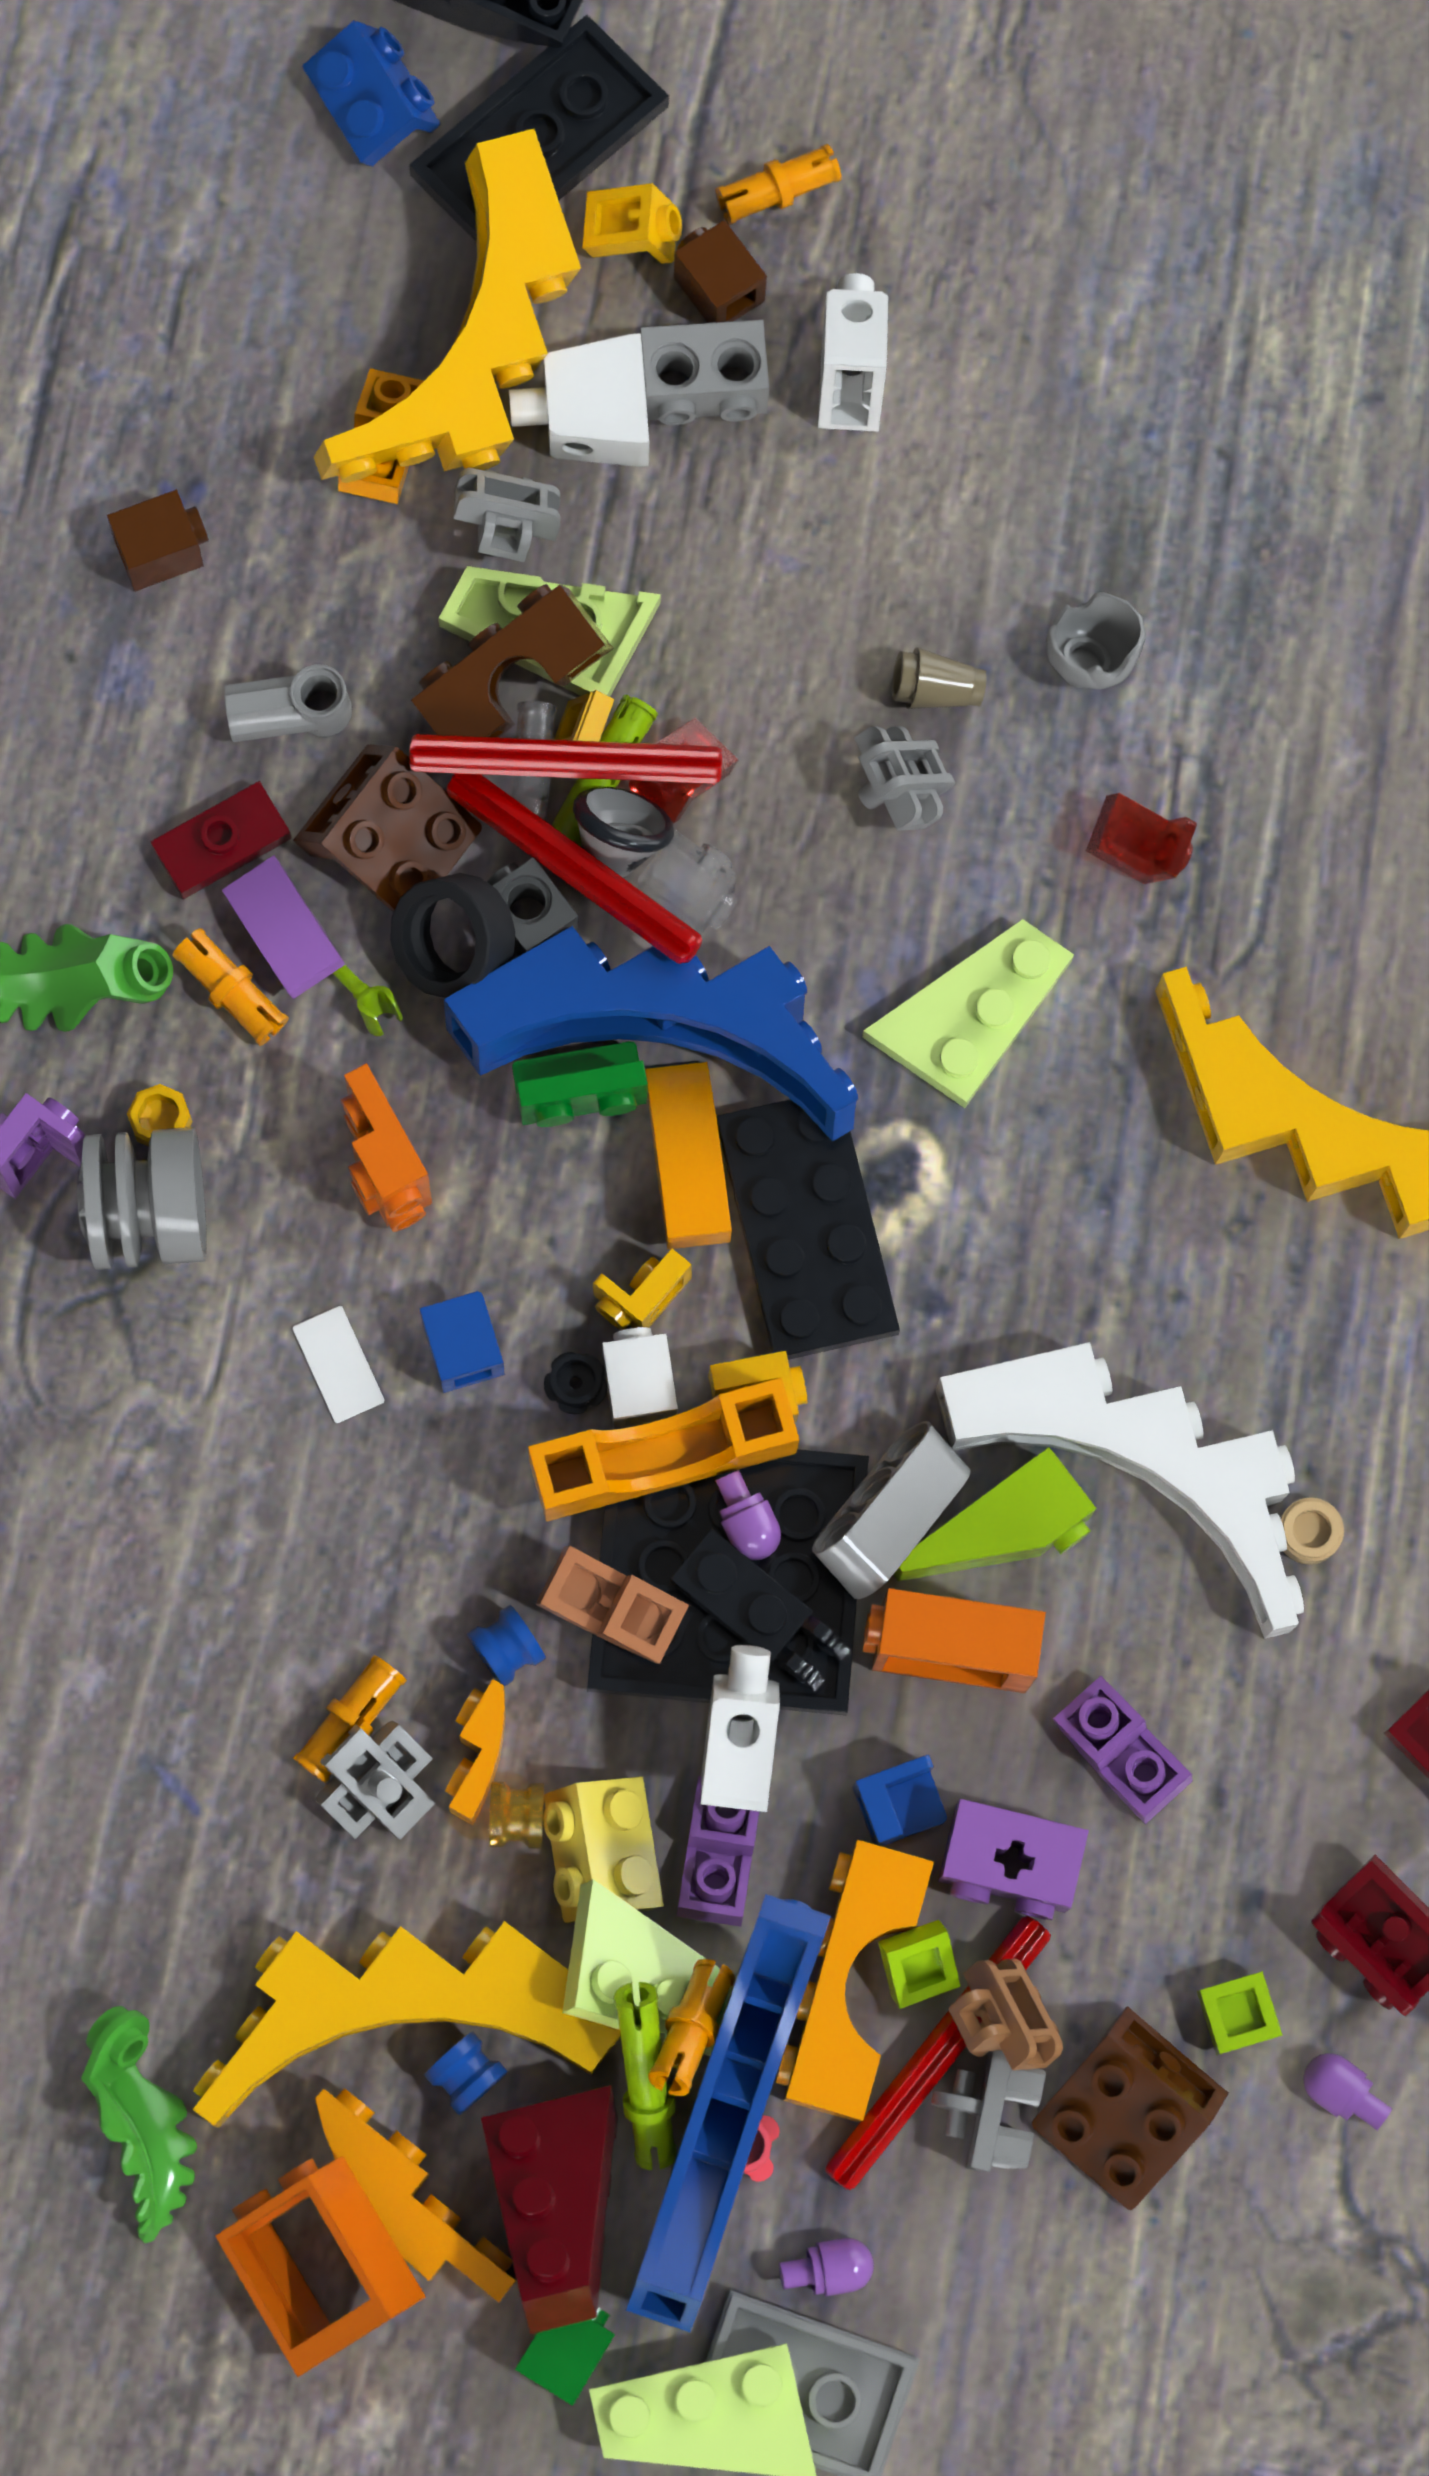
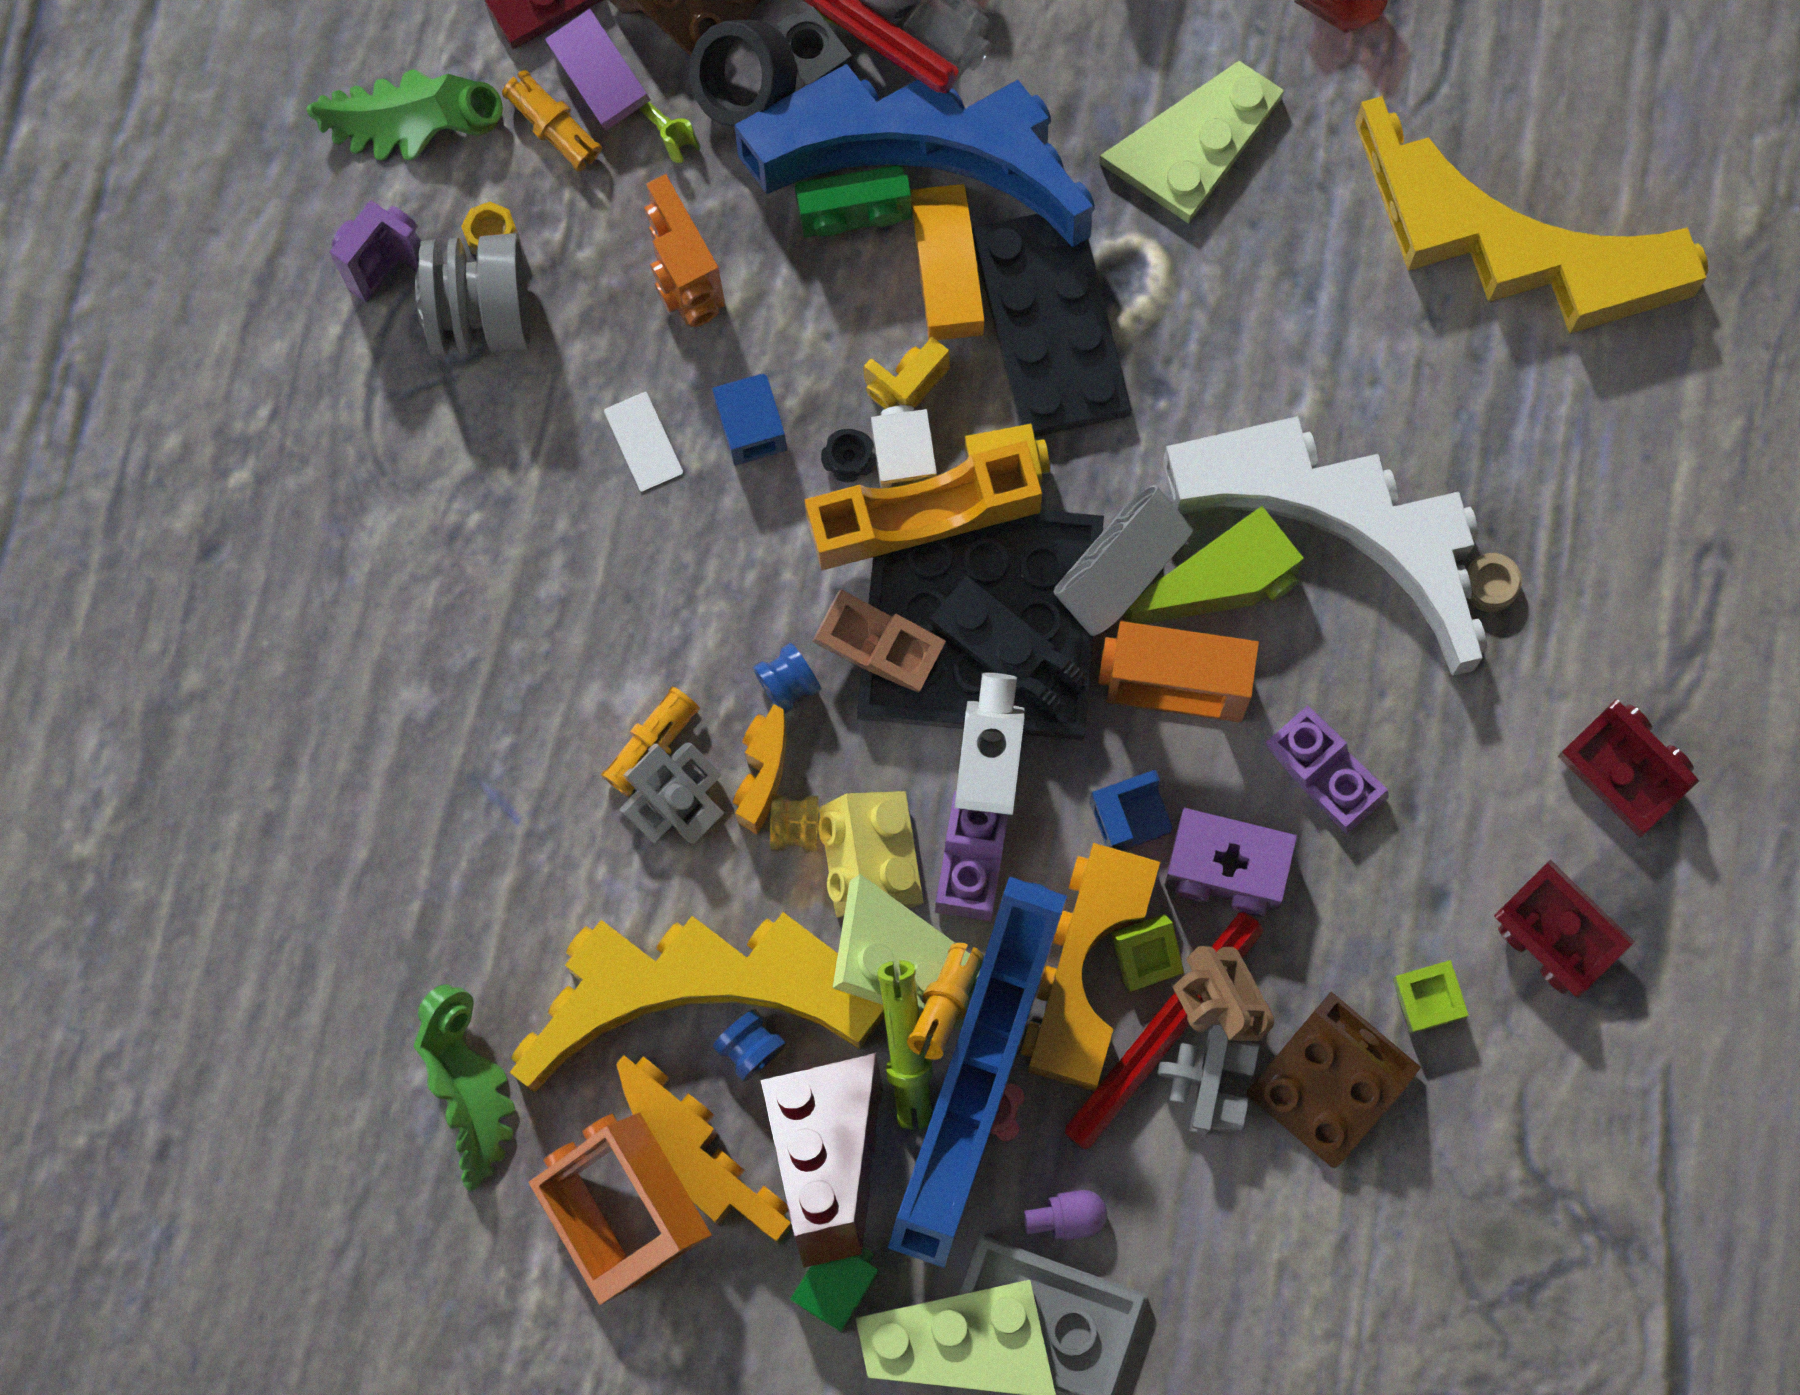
camera: 10 degrees right, 0 degrees up
(748, 1519) = (997, 567): medium lavender cylinder -> none
(1343, 2090) = (1523, 1064): medium lavender cylinder -> none

